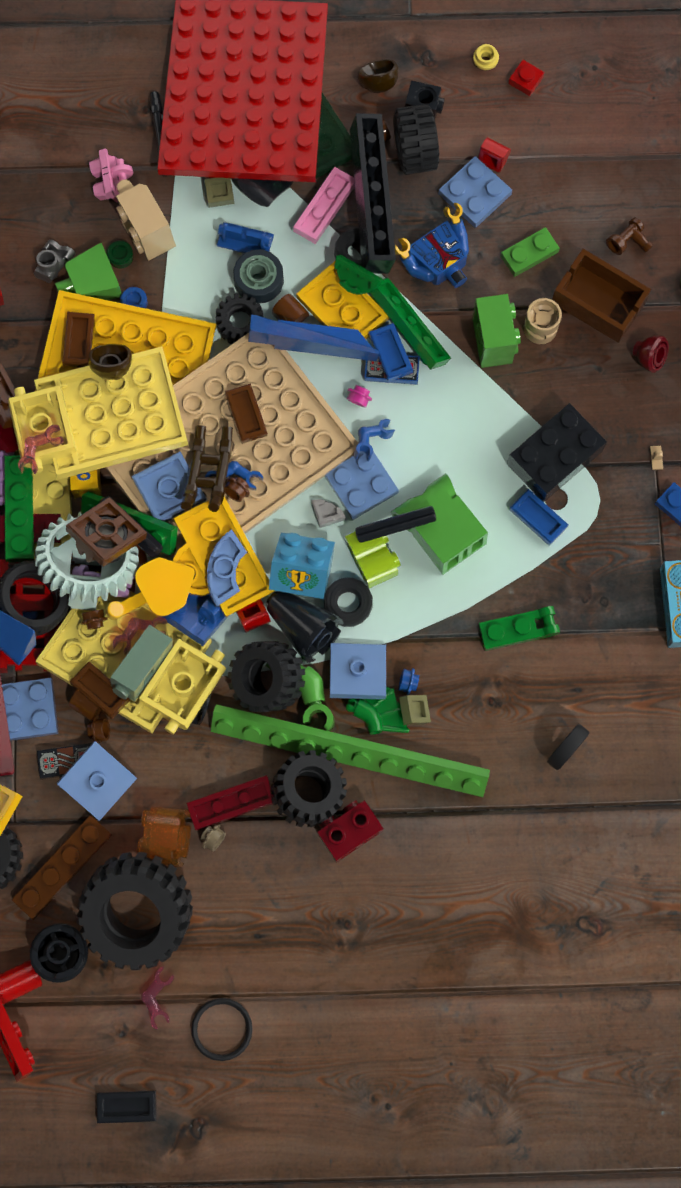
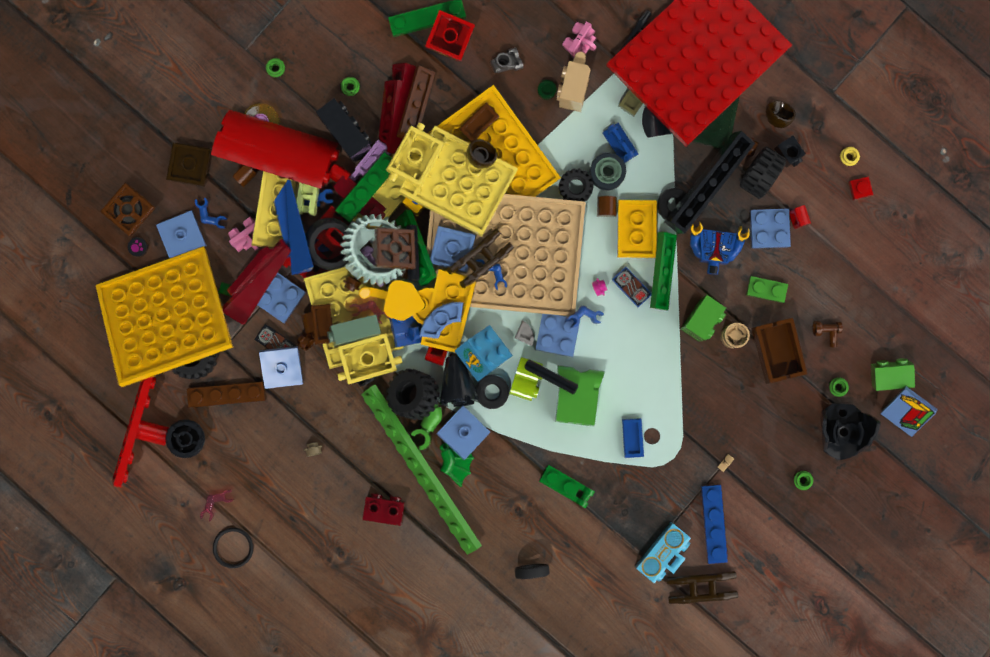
camera: 40 degrees right, 10 degrees up
(34, 441) = (400, 164): arm -> none
(91, 275) = (518, 90): bright green torso -> none
(116, 940) = (220, 462): black tyre -> none
(126, 1106) = (153, 542): black tile -> none
(135, 297) = (531, 123): blue tile -> none
(165, 835) = (289, 428): clear orange brick -> none
(230, 803) = (338, 440): dark red plate -> none
(236, 489) = (487, 281): reddish brown plate -> none
(246, 413) = (529, 244): reddish brown tile -> none
(311, 338) = (601, 233): blue wedge -> none
(324, 205) = (680, 162): bright pink plate -> none
(324, 773) = (393, 482): black tyre -> none
(355, 277) = (656, 221): green plate -> none
(391, 352) = (638, 278): blue tile -> none
(408, 681) = (484, 461): blue plate -> none
(415, 709) = (473, 479): olive plate -> none
(556, 452) = (673, 413): black brick -> none
(652, 352) = (777, 406): dark red brick -> none

